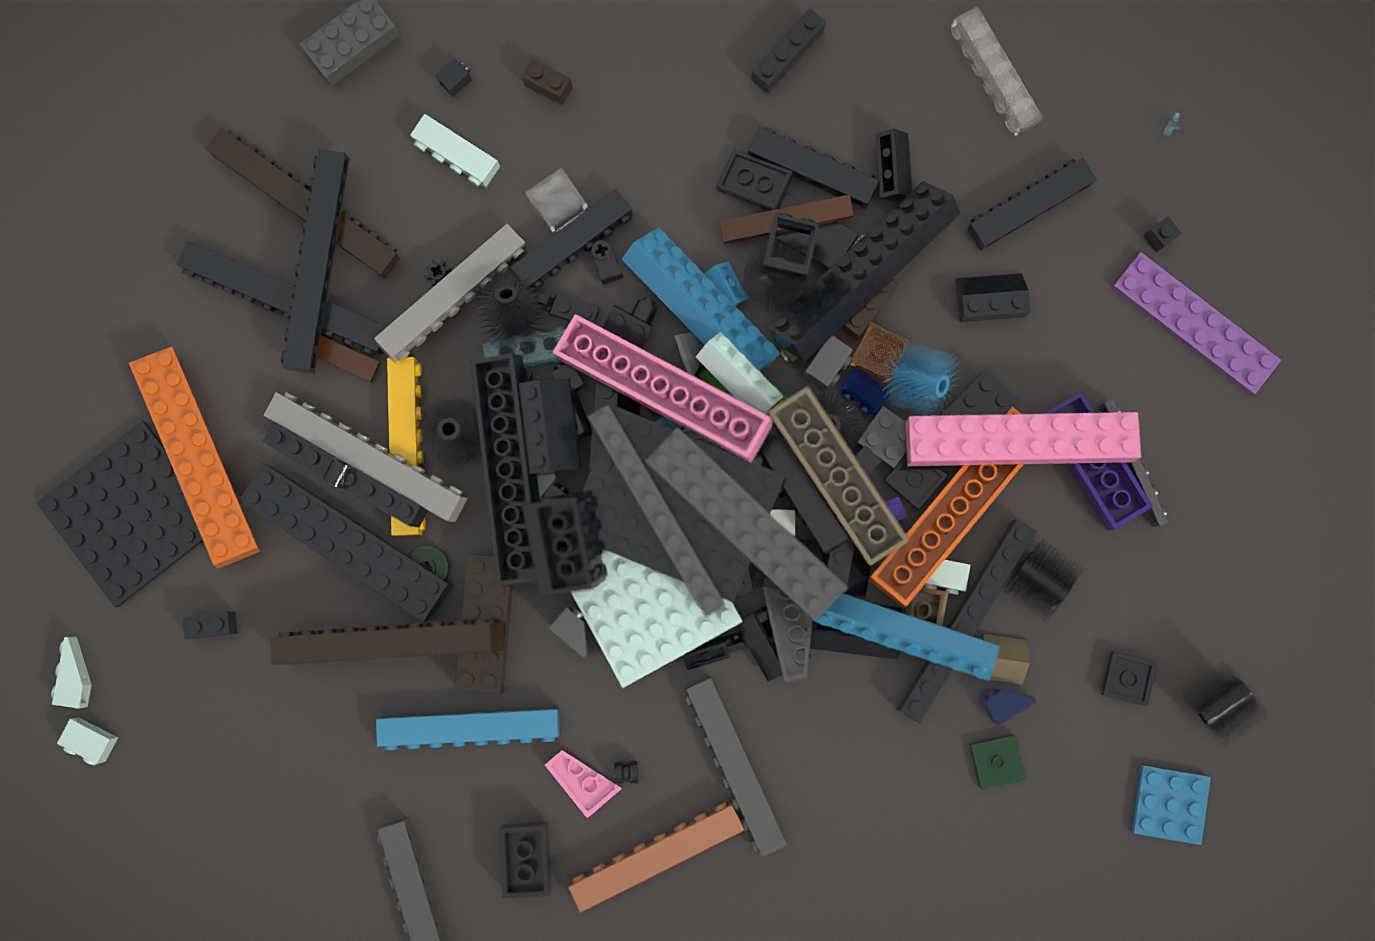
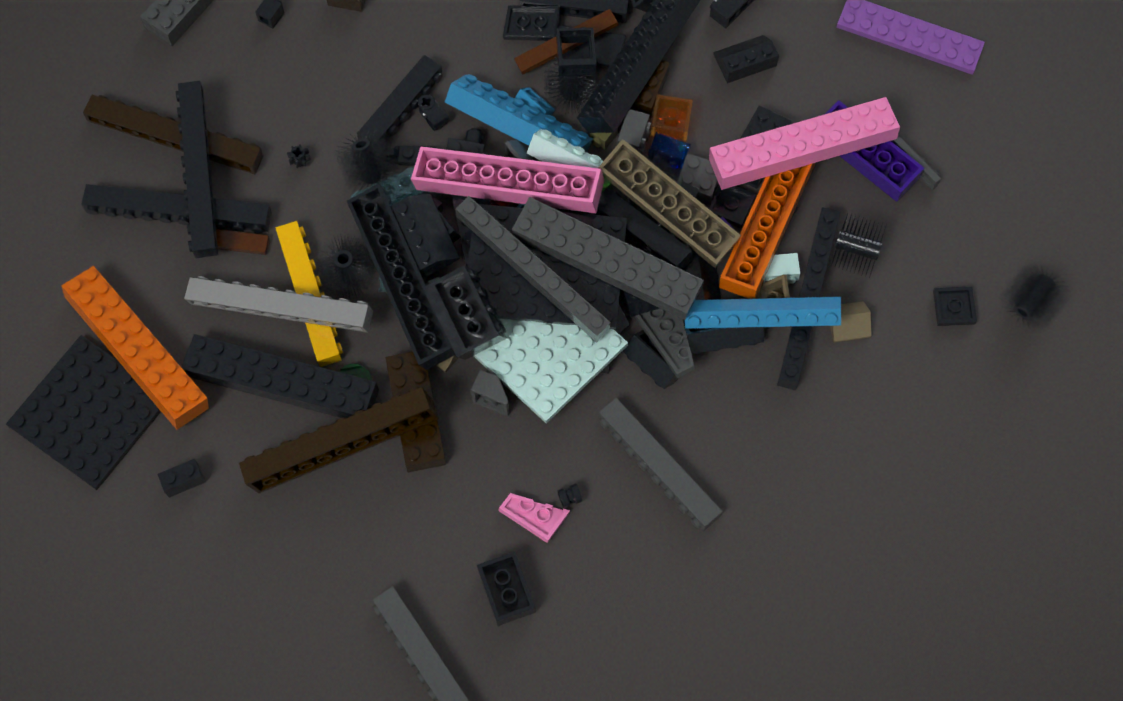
camera: 20 degrees left, 15 degrees down
(72, 680) = (73, 561): light aqua slope -> none
(87, 741) = (98, 603): light aqua brick -> none
(345, 476) = (266, 322): black hinge -> none
(450, 294) = (313, 166): light grey brick -> none
(455, 151) = (286, 64): light aqua brick -> none
(468, 727) = (425, 498): dark azure brick -> none
(556, 201) = (378, 77): clear brick -> none
(656, 856) = (615, 556): nougat brick -> none
(713, 651) = (610, 380): black hinge -> none
(921, 379) = (710, 122): dark azure piece -> none
(997, 762) = (872, 401): dark green plate -> none
(1004, 704) = (862, 352): clear blue slope -> none
(1171, 804) = (1024, 394): dark azure plate -> none

